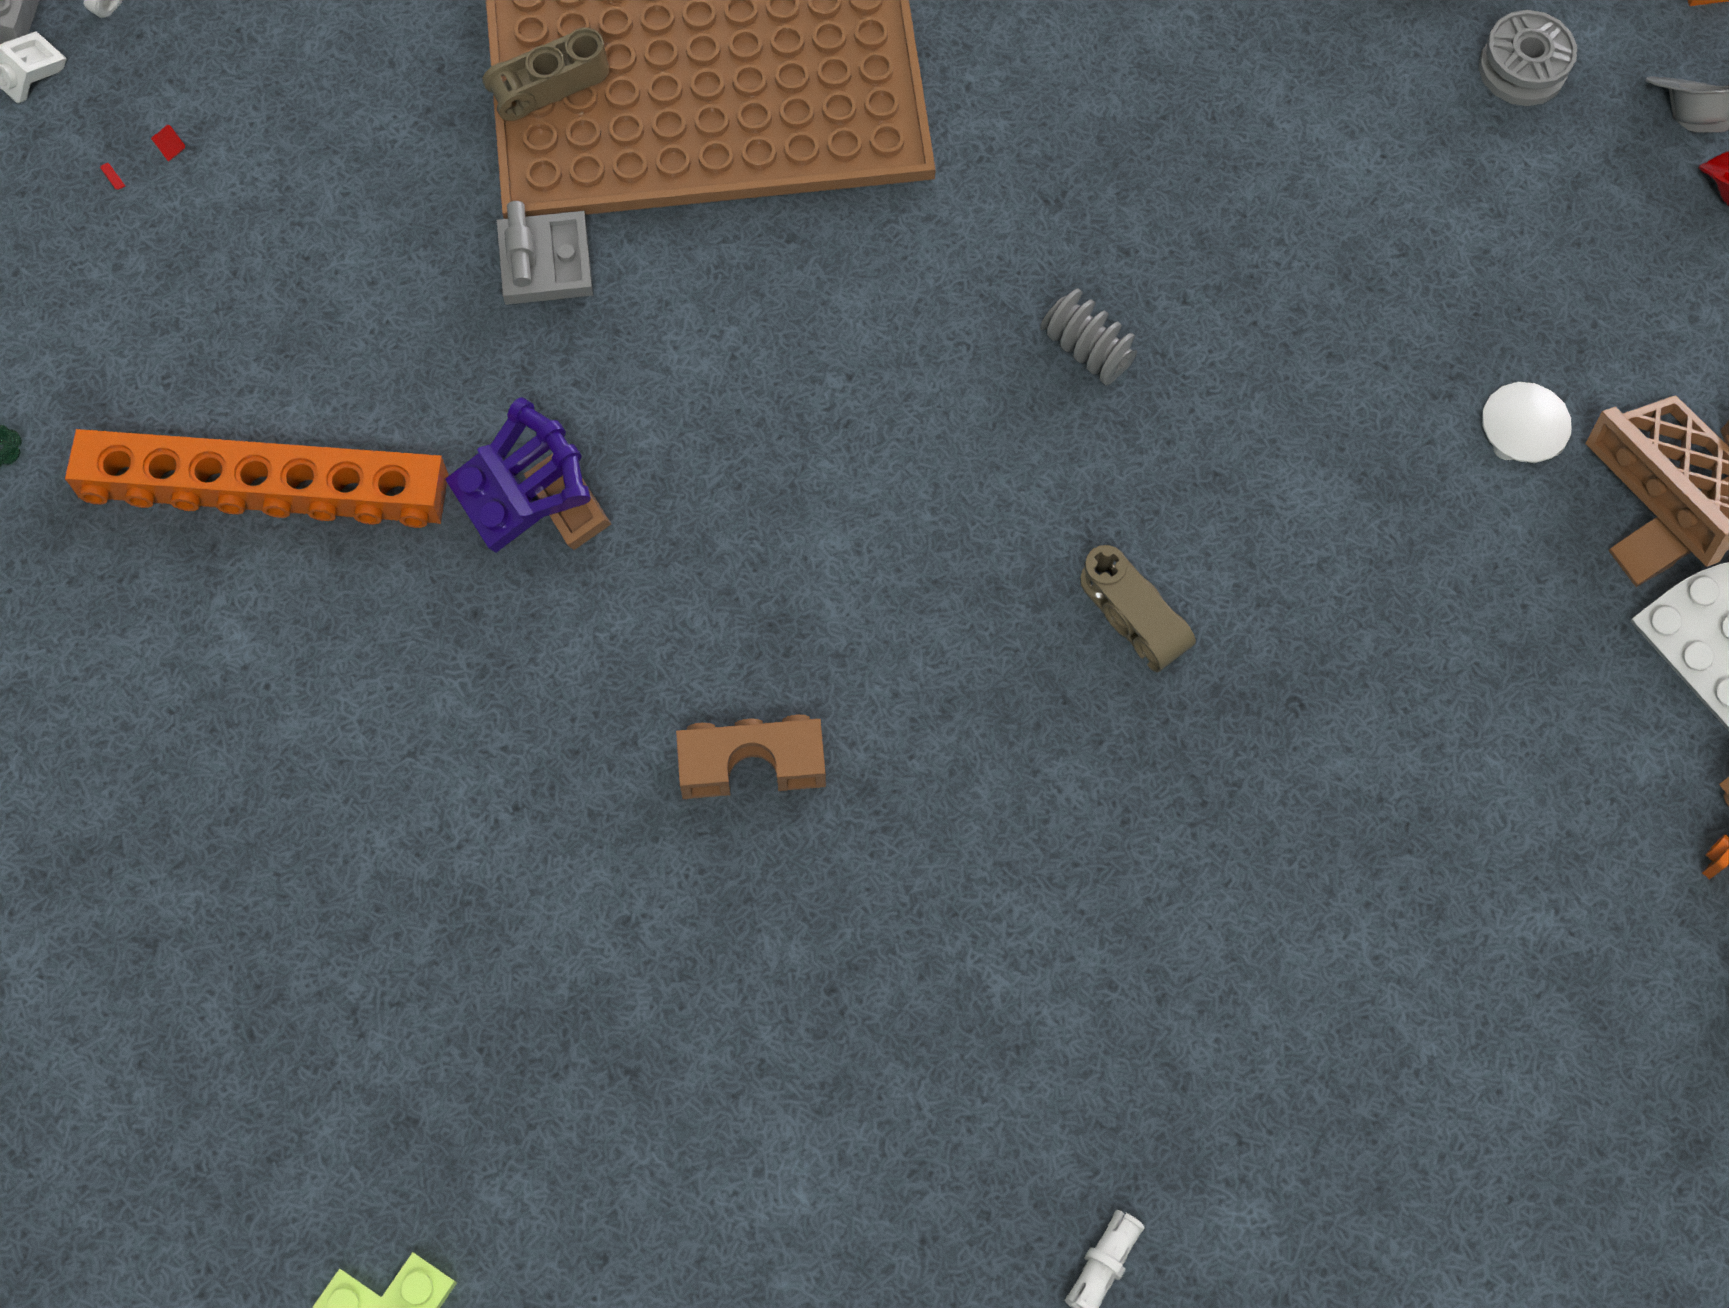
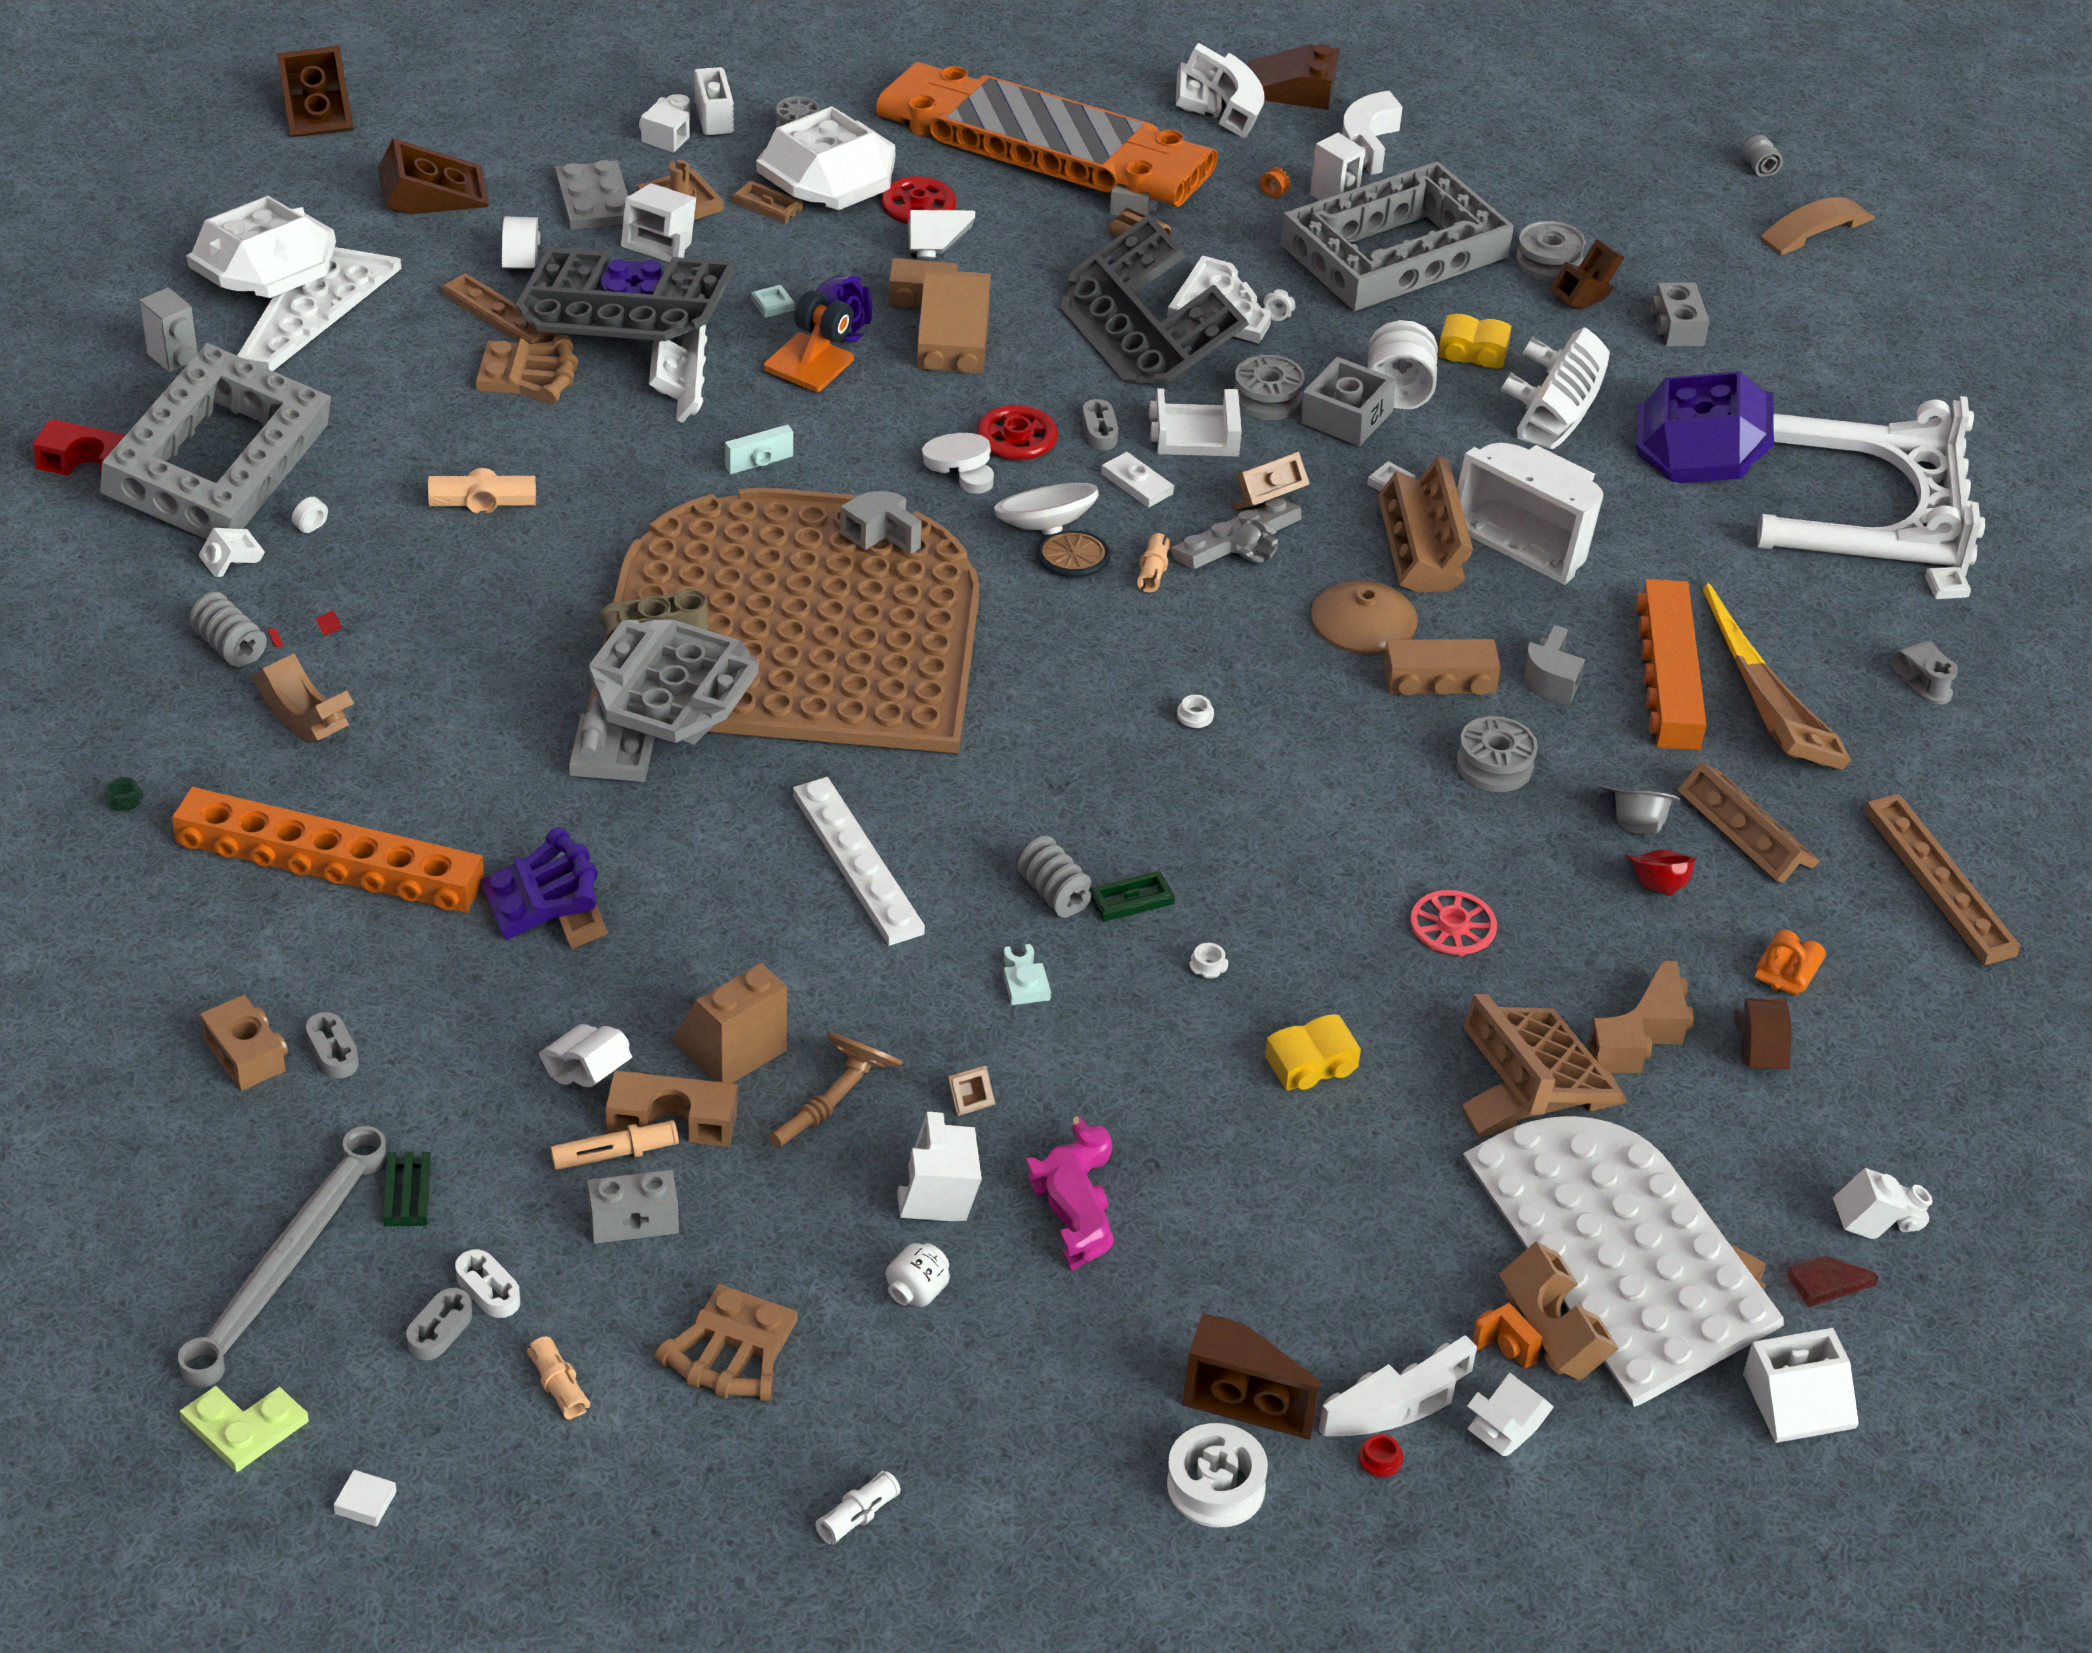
camera: 10 degrees right, 25 degrees down
(53, 184) = (227, 629): none -> light grey piece
(168, 273) = (299, 702): none -> medium nougat arch
(215, 758) = (244, 1042): none -> medium nougat brick
(347, 744) = (340, 1041): none -> light grey beam
(365, 1066) = (282, 1257): none -> light grey piece
(471, 895) = (408, 1164): none -> dark green tile
(557, 1113) = (433, 1319): none -> light grey beam
(590, 126) = (670, 678): none -> light grey piece
(615, 1037) = (481, 1288): none -> white beam
(637, 711) = (586, 1055): none -> white brick
(699, 821) = (626, 1142): none -> light nougat pin
(723, 1161) = (558, 1377): none -> light nougat pin
(745, 909) = (633, 1206): none -> light grey brick
(795, 635) = (736, 1026): none -> medium nougat slope
(863, 356) = (858, 861): none -> white plate
(912, 1035) = (740, 1322): none -> medium nougat plate
(944, 642) = (821, 1107): none -> medium nougat dish
(1075, 655) = (971, 1090): none -> slope
(1079, 788) = (941, 1172): none -> white plate
(1088, 931) = (917, 1275): none -> white head
(1091, 482) = (1023, 979): none -> light aqua plate
(1135, 608) = (1032, 1065): dark tan piece -> none
(1148, 358) = (1133, 900): none -> dark green tile
(1185, 57) = (1195, 711): none -> white plate
(1228, 778) = (1072, 1194): none -> dark pink animal
(1287, 403) = (1208, 960): none -> white plate
(1436, 519) = (1312, 1052): none -> yellow brick
(1476, 1164) = (1213, 1496): none -> white wheel
(1491, 998) = (1248, 1379): none -> reddish brown slope
(1526, 422) = (1416, 1005): white dish -> none
(1535, 299) = (1453, 922): none -> coral wheel
(1648, 1053) = (1380, 1455): none -> red plate
(1652, 970) = (1393, 1400): none -> white slope

